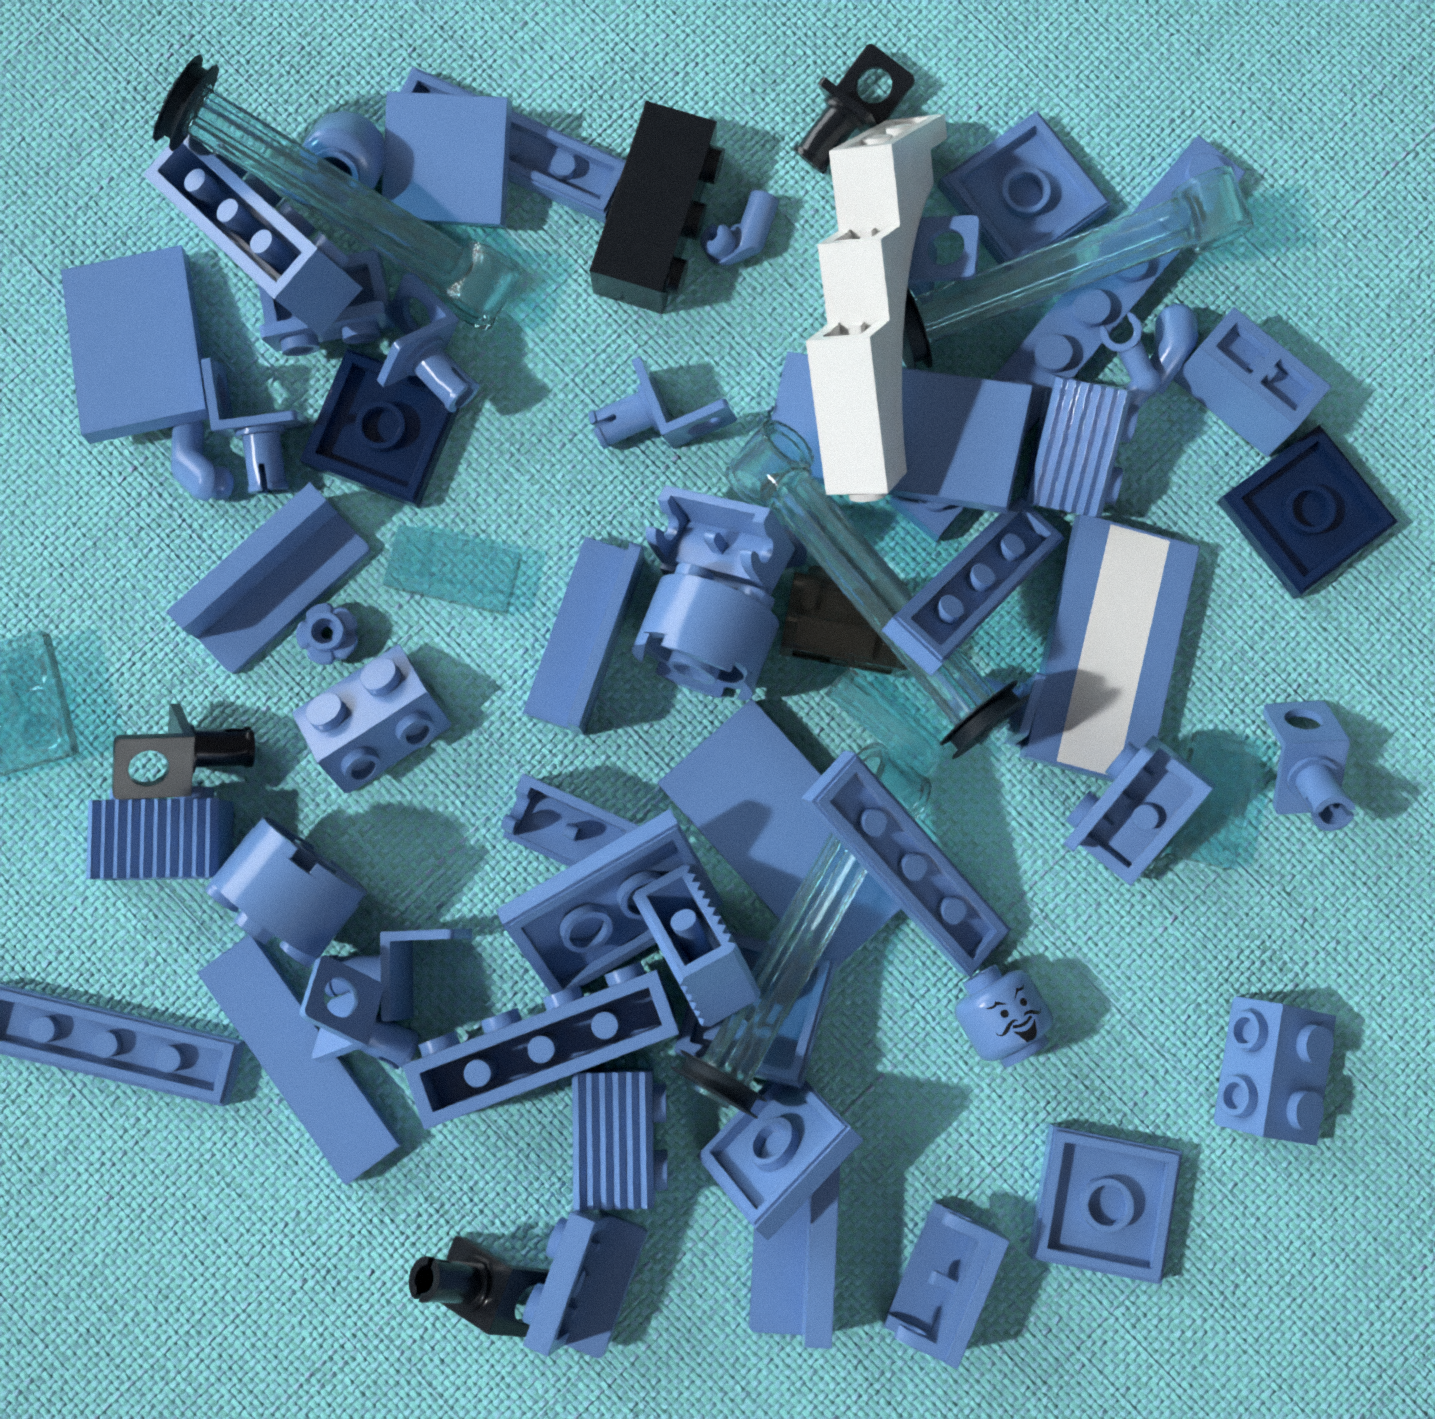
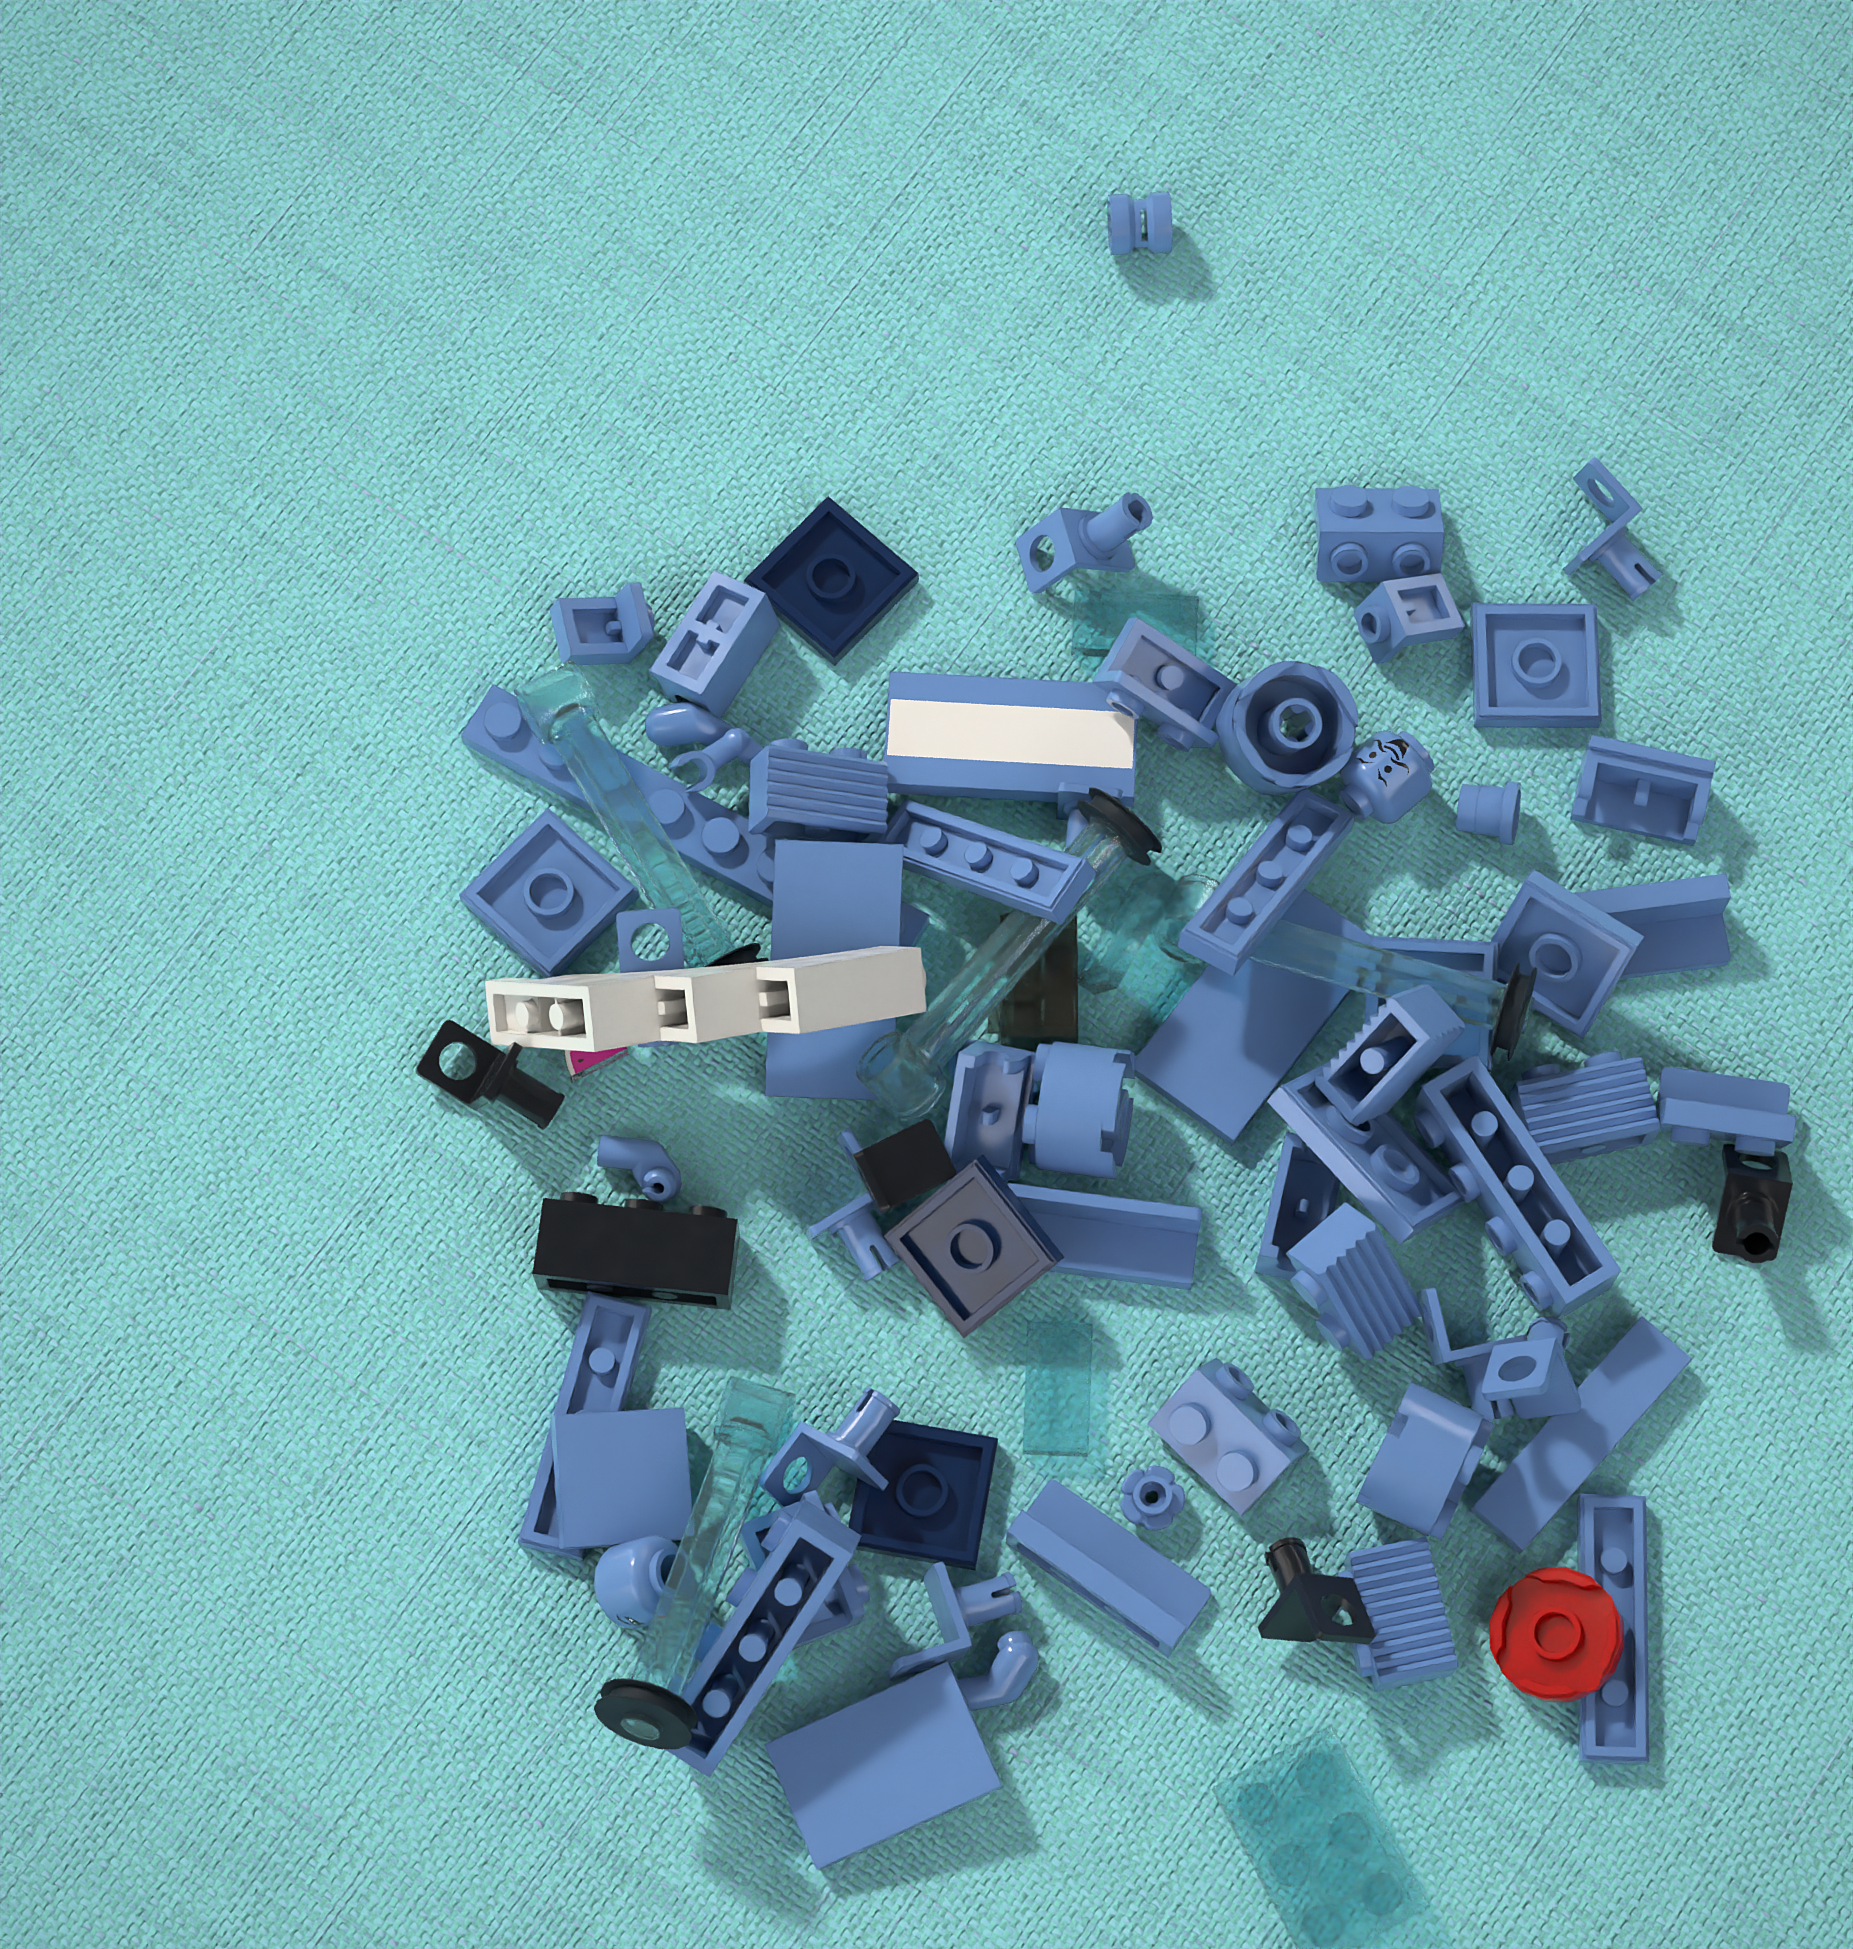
camera: 100 degrees left, 10 degrees down
(107, 986) = (1556, 1634): none -> red tile
(477, 858) = (1353, 1283): none -> medium blue brick
(593, 508) = (973, 1246): none -> dark blue tile
(673, 438) = (903, 1165): none -> black bracket
(951, 1116) = (1490, 810): none -> medium blue piece
(1057, 957) = (1313, 751): none -> medium blue brick
(1179, 1080) = (1407, 614): none -> medium blue bracket
(1222, 1317) = (1612, 546): none -> medium blue bracket
(1288, 278) = (603, 627): none -> medium blue bracket

